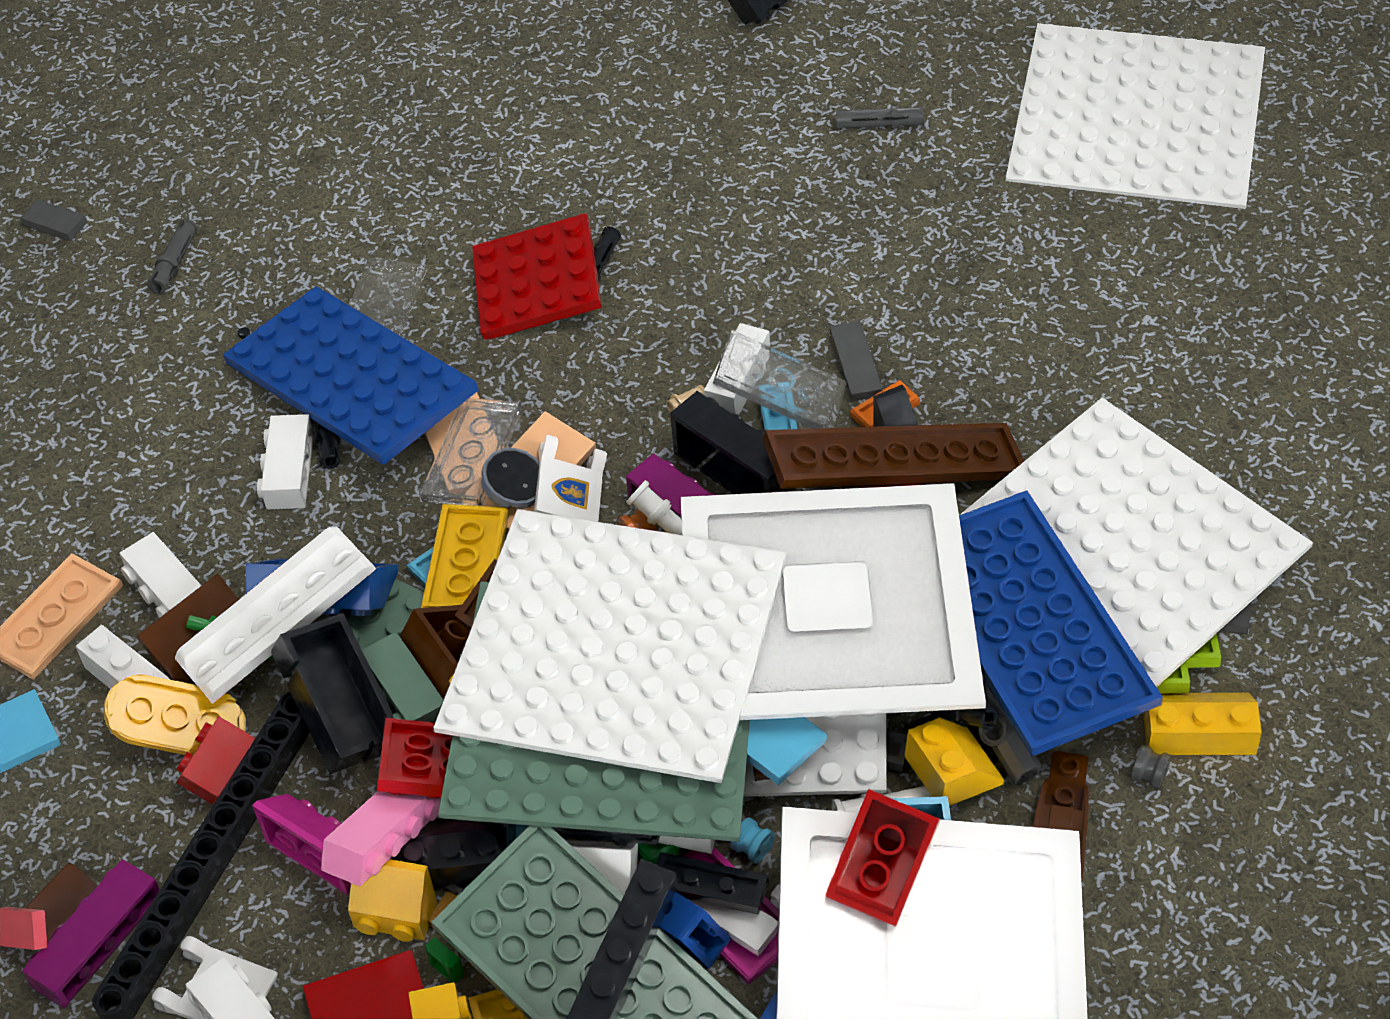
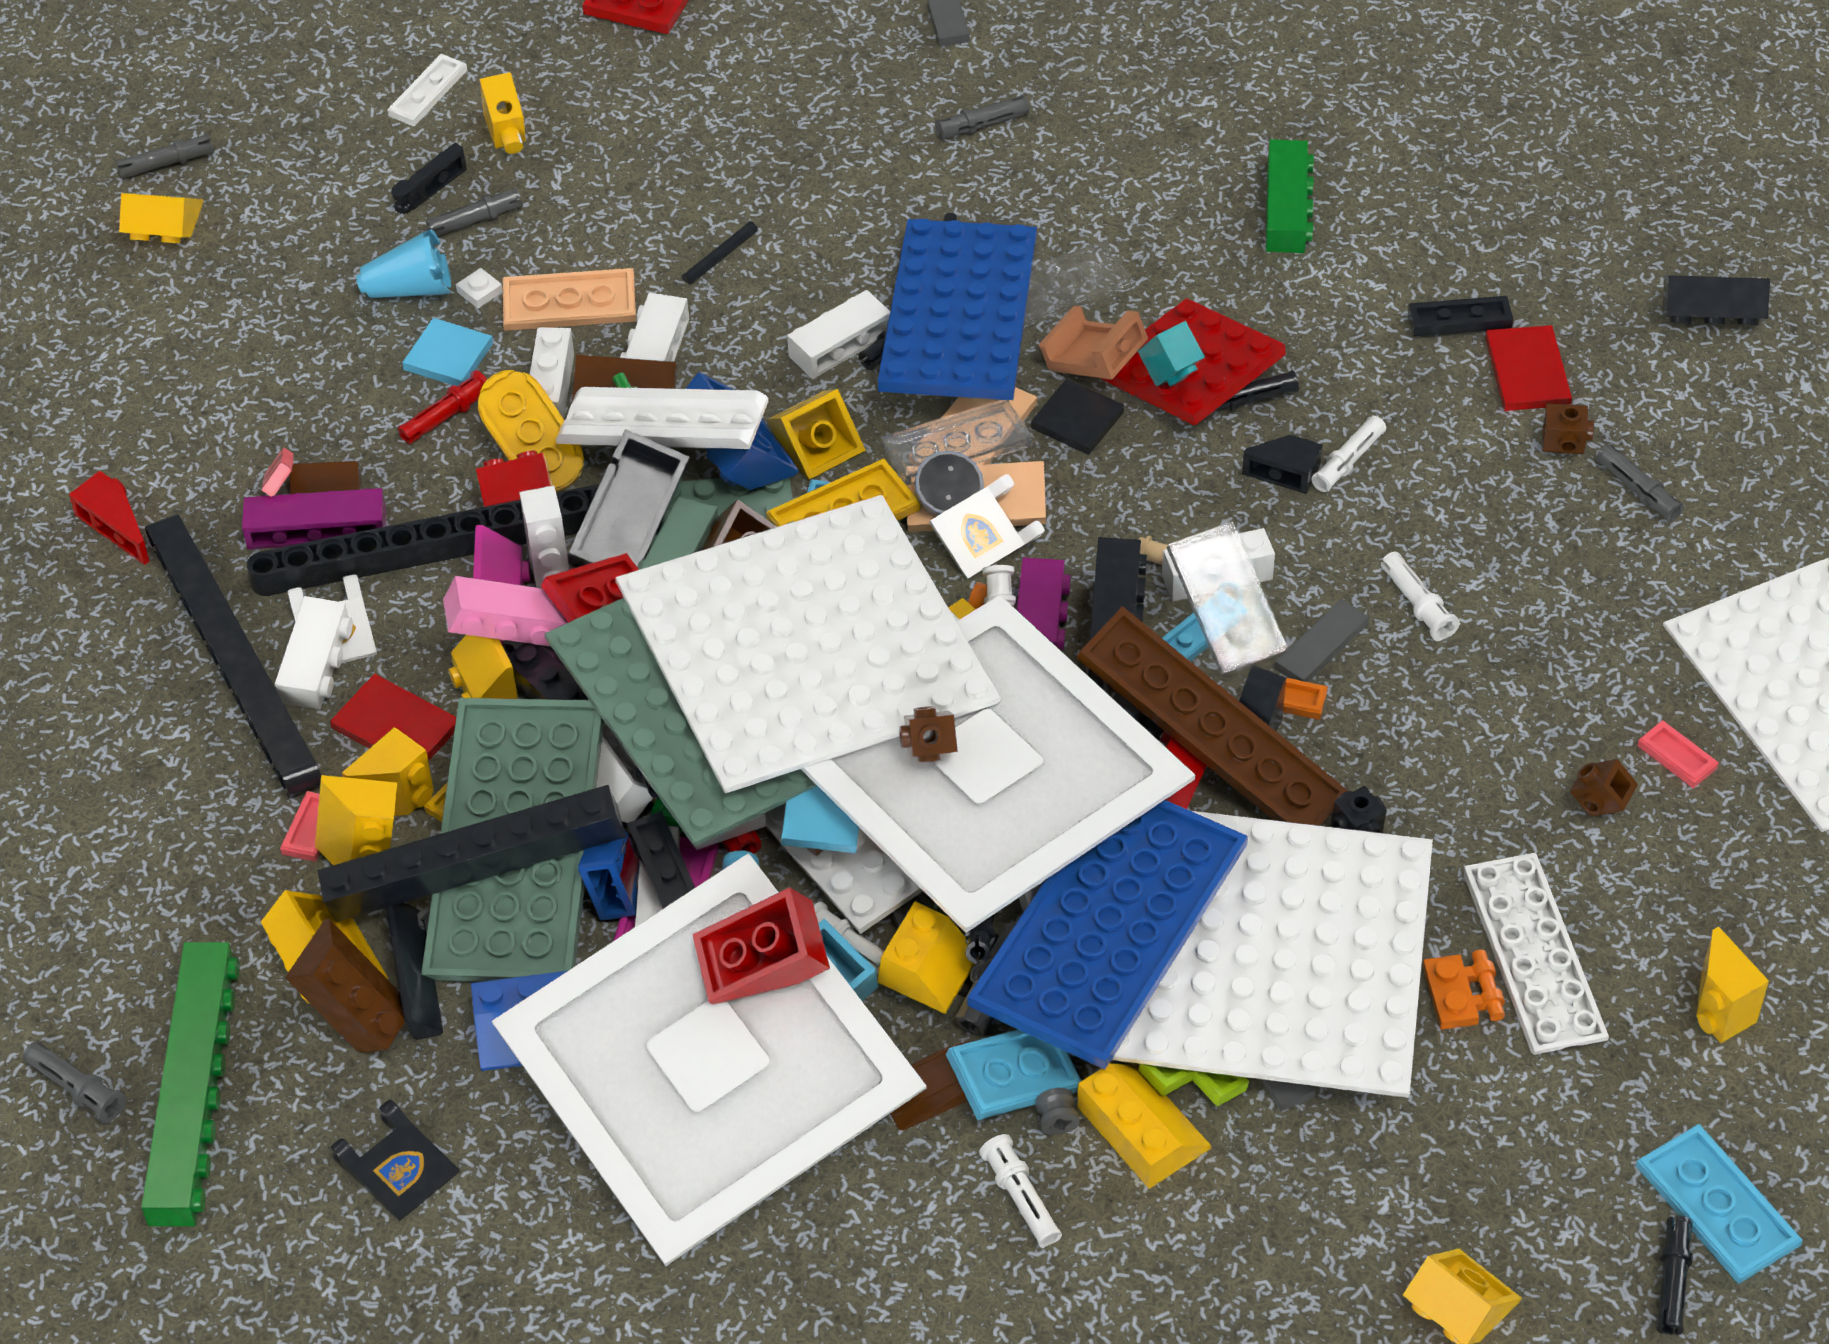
camera: 50 degrees right, 0 degrees up
(75, 753) = (456, 400): none -> red pin
(117, 490) = (720, 253): none -> black bar
(307, 765) = (544, 533): none -> white brick
(373, 526) = (817, 433): none -> yellow slope
(442, 137) = (1287, 196): none -> green brick
(466, 320) = (1092, 347): none -> nougat panel
(513, 371) = (1077, 416): none -> black tile
(548, 269) = (1171, 355): none -> teal brick
(645, 117) = (1460, 316): none -> black plate
(682, 281) = (1284, 462): none -> black slope
(707, 253) = (1341, 461): none -> white pin
(723, 112) = (1528, 367): none -> red tile
(793, 610) = (942, 735): none -> reddish brown brick
(802, 122) = (1566, 428): none -> reddish brown brick
(880, 284) = (1427, 605): none -> white pin
(1035, 428) = (1359, 811): none -> black brick
(1096, 774) = (1010, 1071): none -> medium azure tile
(1122, 237) = (1677, 754): none -> coral tile
(1127, 286) = (1603, 787): none -> reddish brown brick
(1188, 832) = (1014, 1173): none -> white pin
(1227, 410) = (1534, 954): none -> white plate
(1235, 474) = (1452, 994): none -> orange plate
(1350, 323) = (1729, 989): none -> yellow slope

